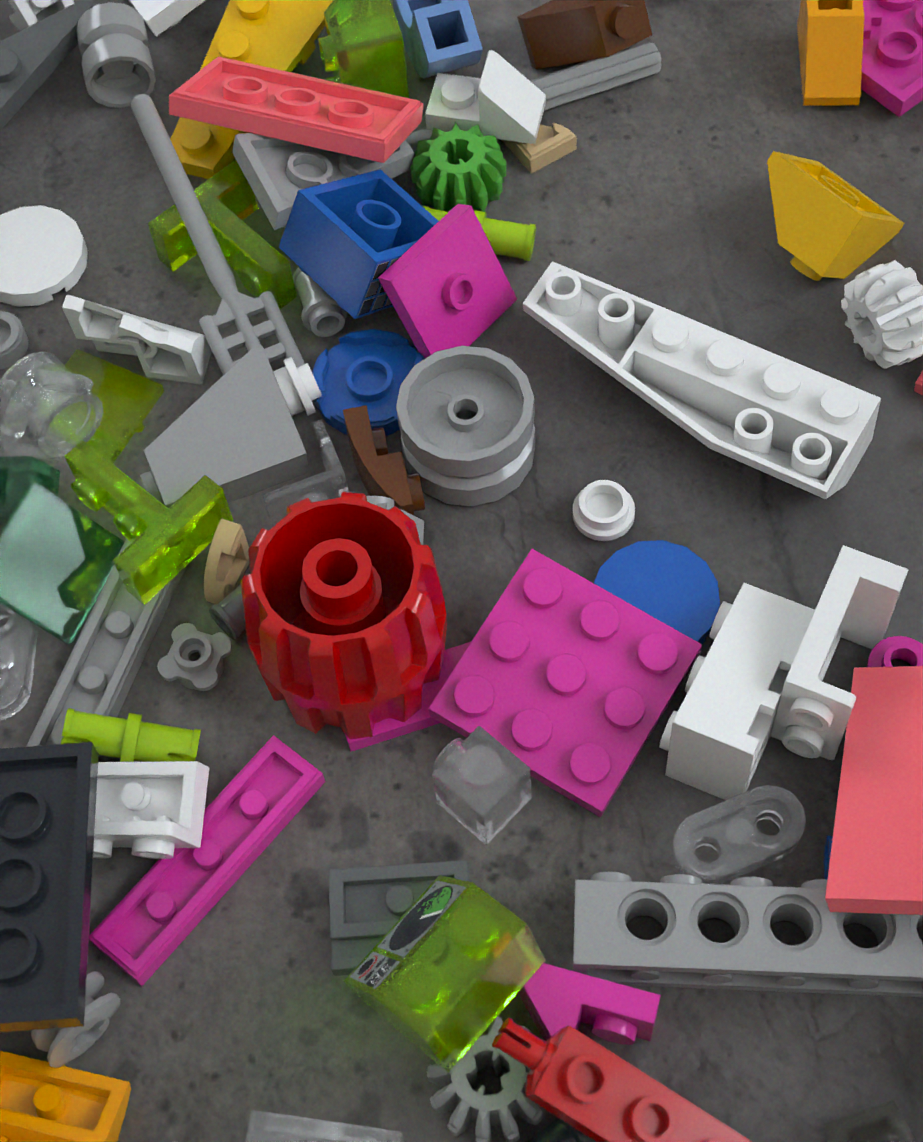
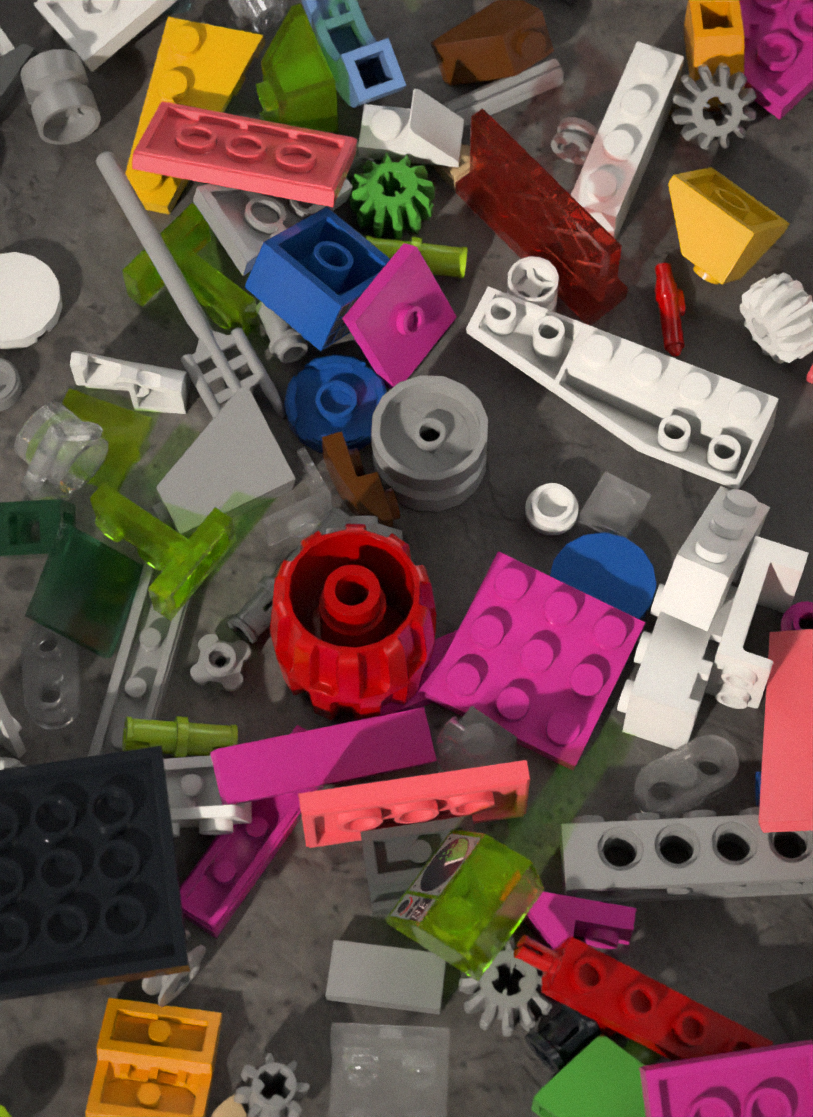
camera: 10 degrees left, 5 degrees up
(225, 561) = (235, 579): tan tile -> none
(293, 774) = (323, 756): none -> dark pink tile
(297, 387) = (278, 415): white plate -> none
(308, 842) = (483, 792): none -> coral tile
(339, 1055) = (386, 977): none -> light grey tile
(607, 260) = (536, 280): none -> white wheel
(621, 196) = (541, 219): none -> clear red fence
(668, 125) = (574, 140): none -> light grey bush
(678, 513) = (615, 506): none -> clear plate
(720, 130) = (628, 135): none -> white brick
(762, 302) = (671, 308): none -> red piece
(786, 571) = (712, 557): none -> white arch
(835, 75) = (728, 91): none -> light grey gear

